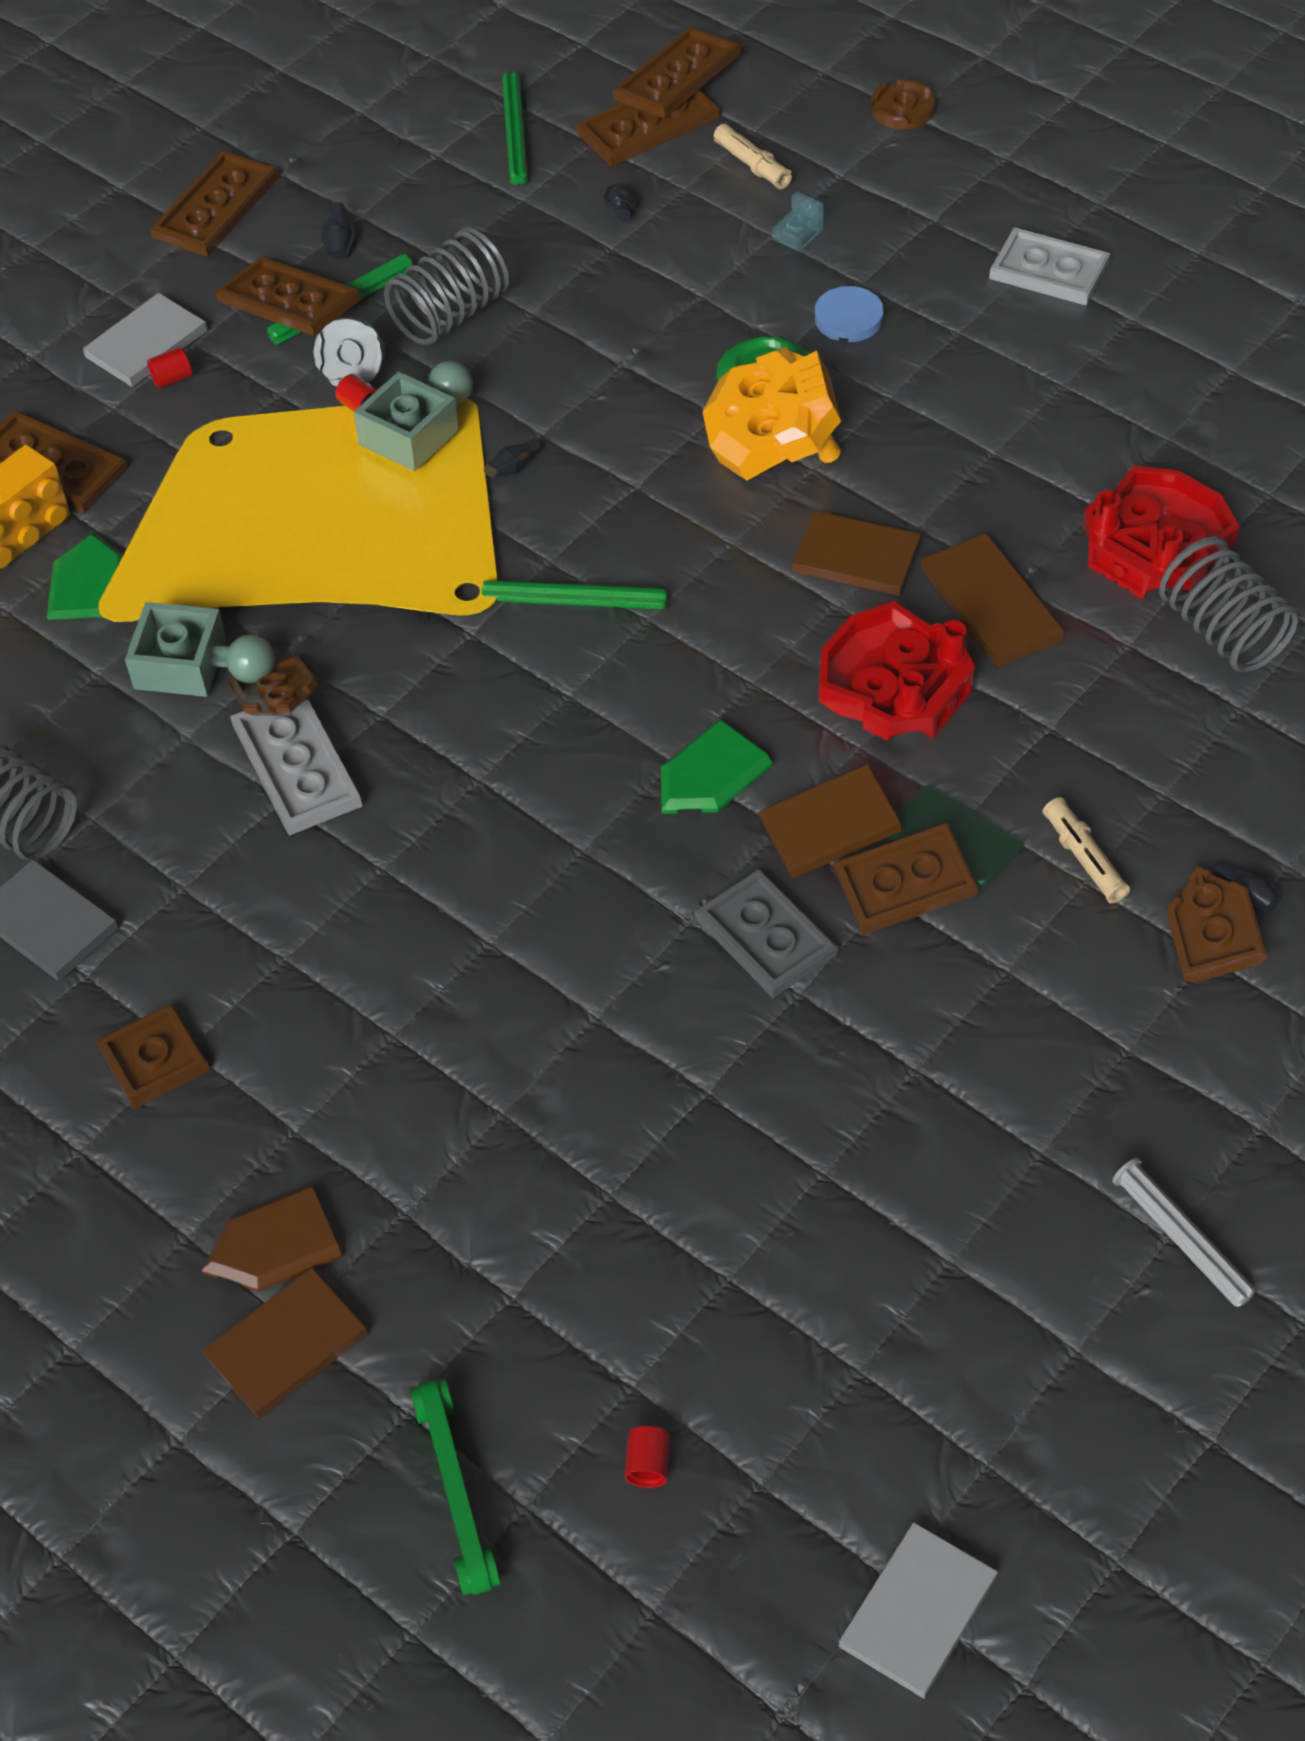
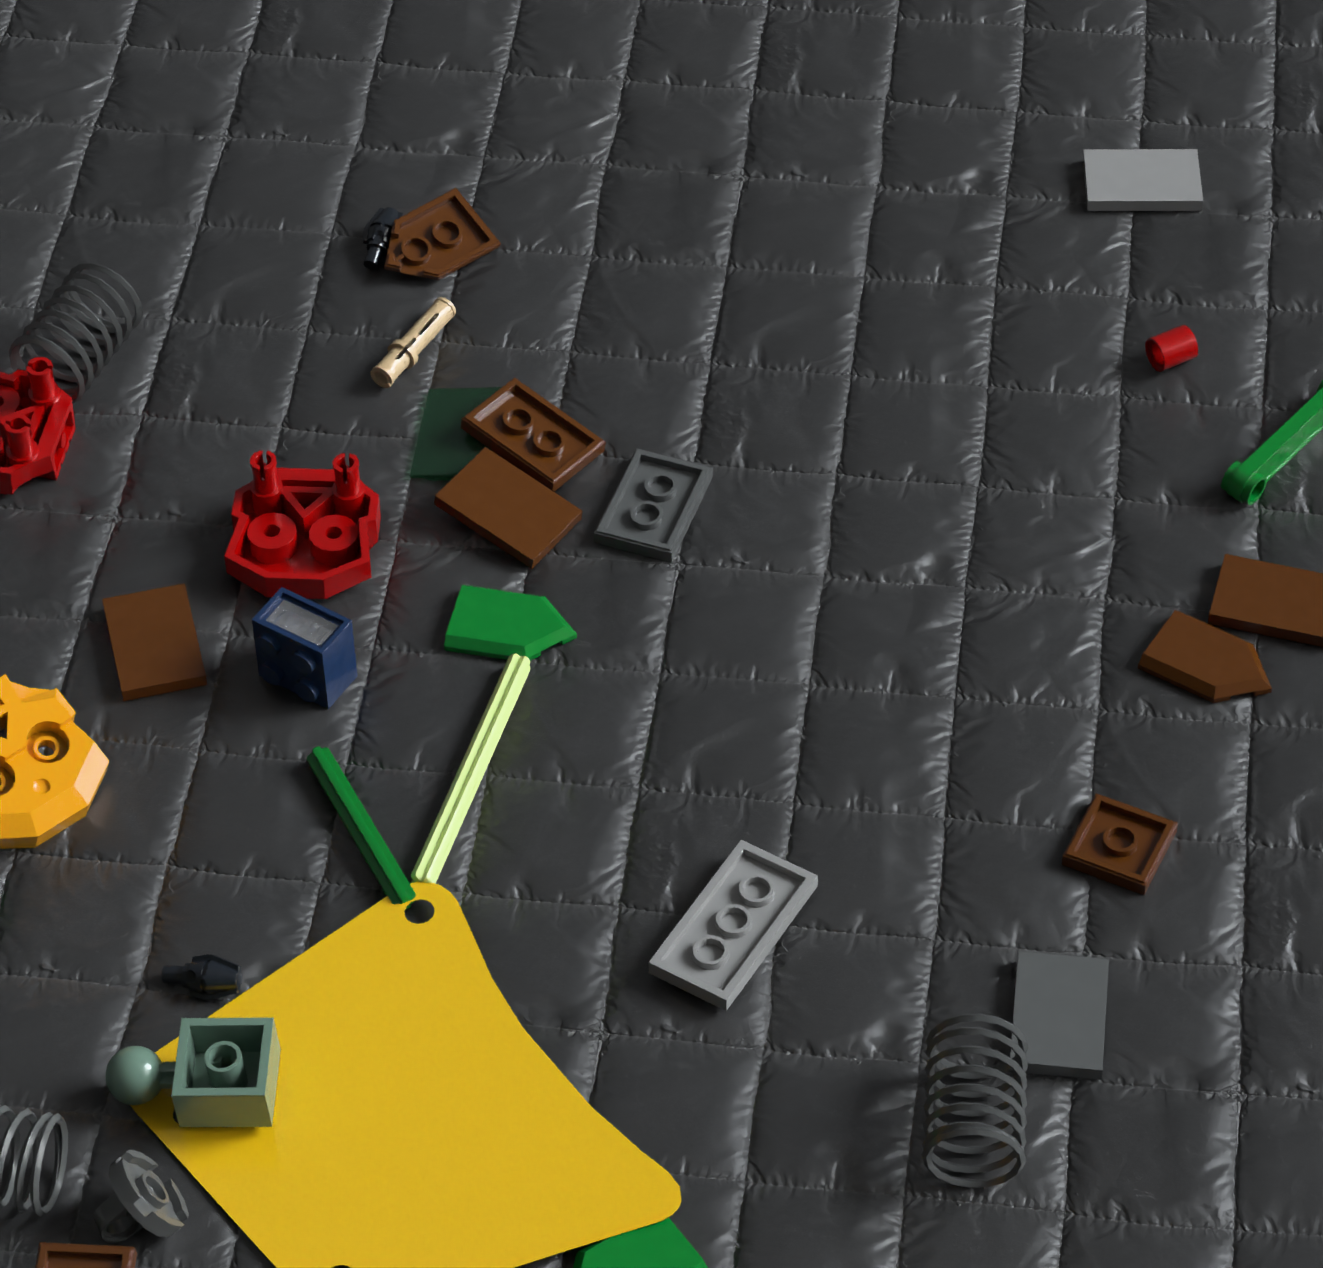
camera: 125 degrees left, 5 degrees down
(183, 645) = (677, 1081): sand green brick -> none
(277, 692) = (669, 975): reddish brown tile -> none
(353, 391) = (201, 1161): red beam -> none
(577, 683) = (471, 770): none -> yellowish green axle
(756, 608) = (304, 648): none -> dark blue piece
(992, 600) = (151, 521): reddish brown tile -> none
(1184, 1232) = (714, 200): light grey axle -> none

